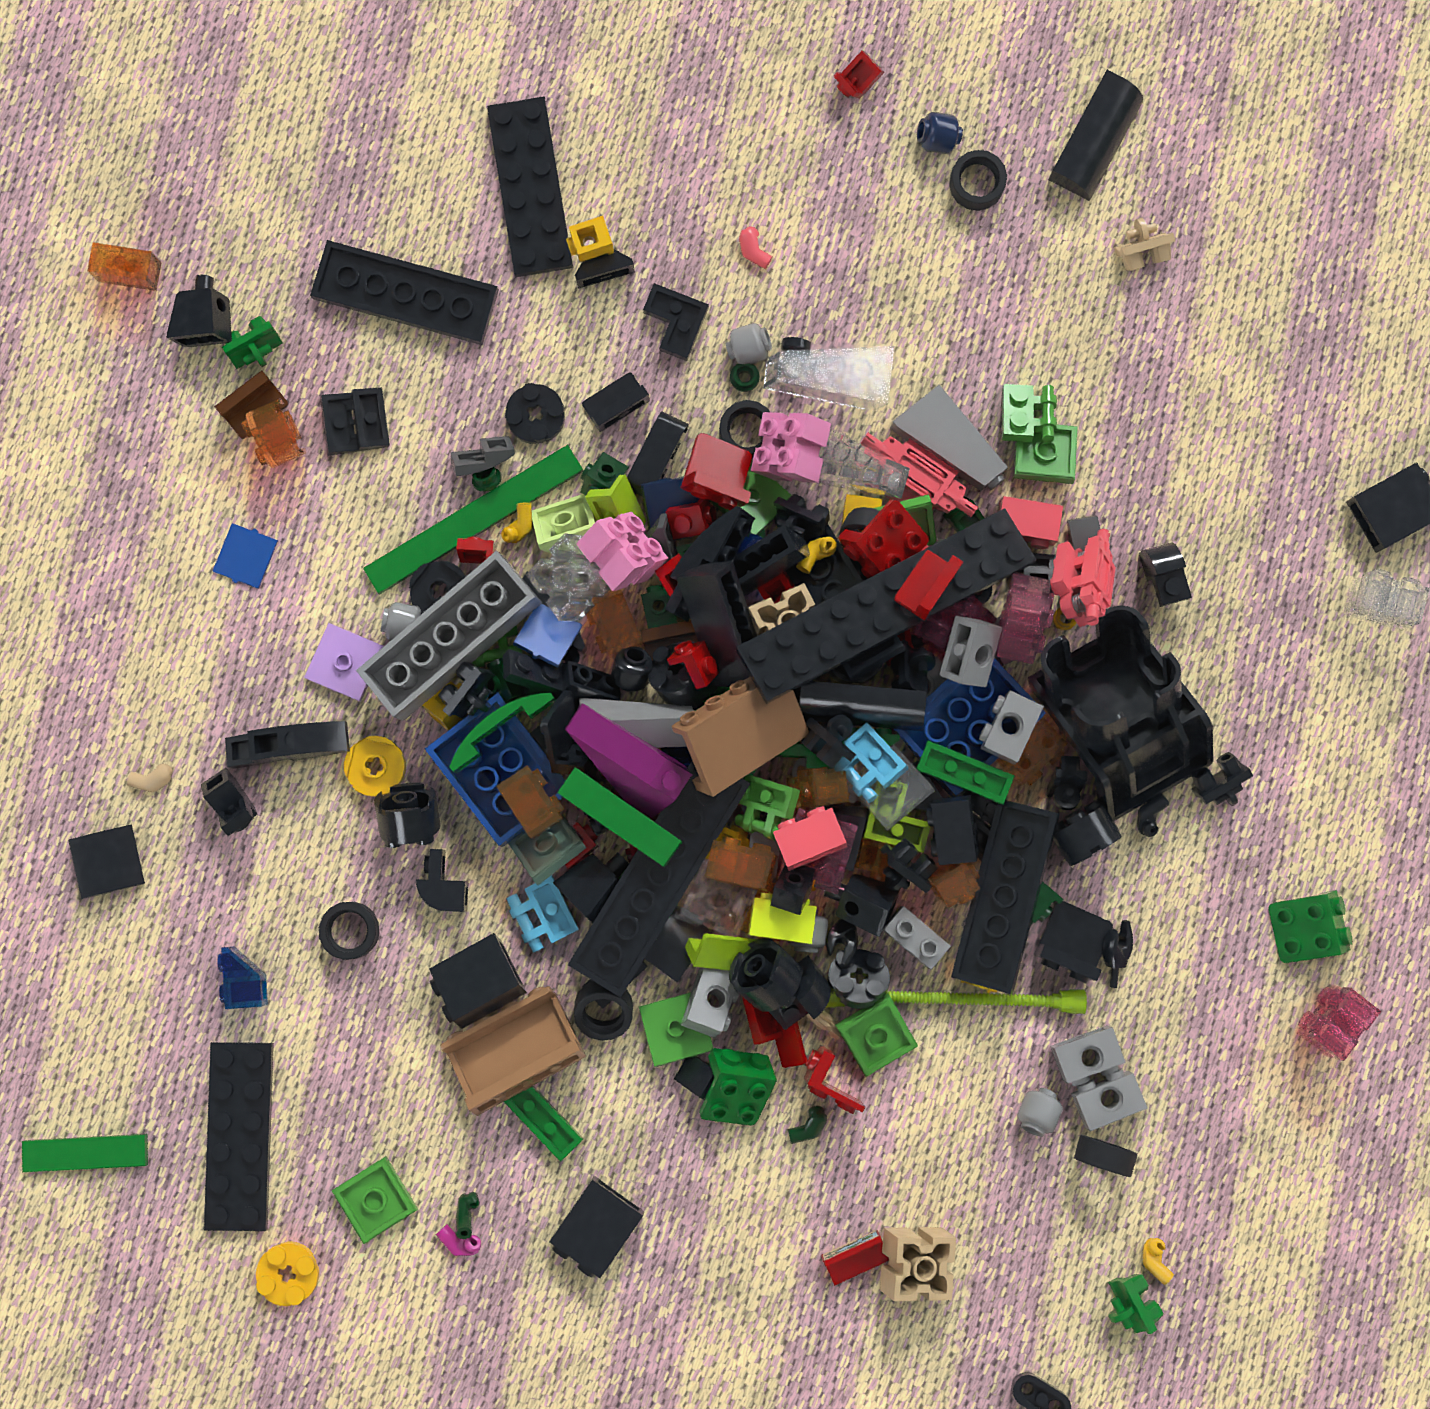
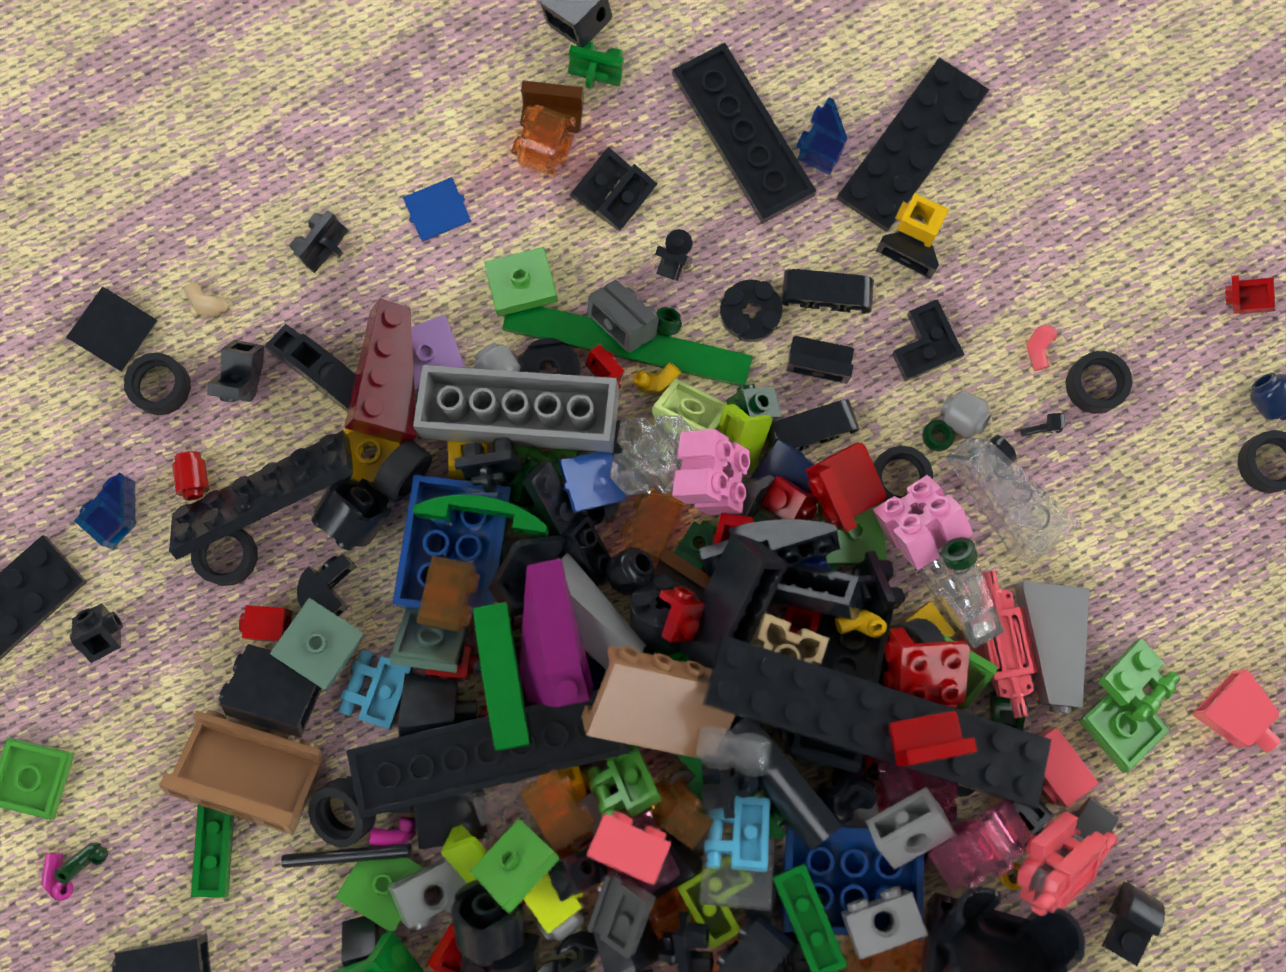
camera: 45 degrees right, 5 degrees down
(156, 868) = (140, 367): none -> black tyre
(190, 658) = (320, 242): none -> black hips
(269, 903) = (190, 475): none -> red brick
(318, 1064) = (96, 632): none -> black brick
(334, 864) = (260, 494): none -> black plate
(337, 705) = (384, 381): none -> dark red wedge
(358, 548) = (521, 281): none -> bright green plate
(411, 754) = (397, 471): none -> black tyre
(425, 946) = (264, 623): none -> red brick
(446, 426) = (675, 256): none -> black hips
(453, 503) = (622, 315): none -> dark grey brick
(468, 243) = (825, 140): none -> clear blue slope
(476, 920) = (317, 644): none -> sand green plate
(491, 453) = (690, 307): dark grey slope -> none
(573, 348) = (827, 289): none -> black beam
(634, 1034) = (346, 855): none -> black bar
(653, 991) = (399, 835): none -> dark pink arm
(748, 922) = (514, 865): none -> bright green plate
(807, 718) = (723, 750): none -> clear brick
(812, 292) = (1055, 422): none -> black hand
(815, 213) = (1111, 362): none -> black tyre
(834, 445) = (959, 554): none -> dark green tile
(844, 884) = (621, 913): none -> dark grey plate
(1110, 370) = (1240, 712): none -> coral torso

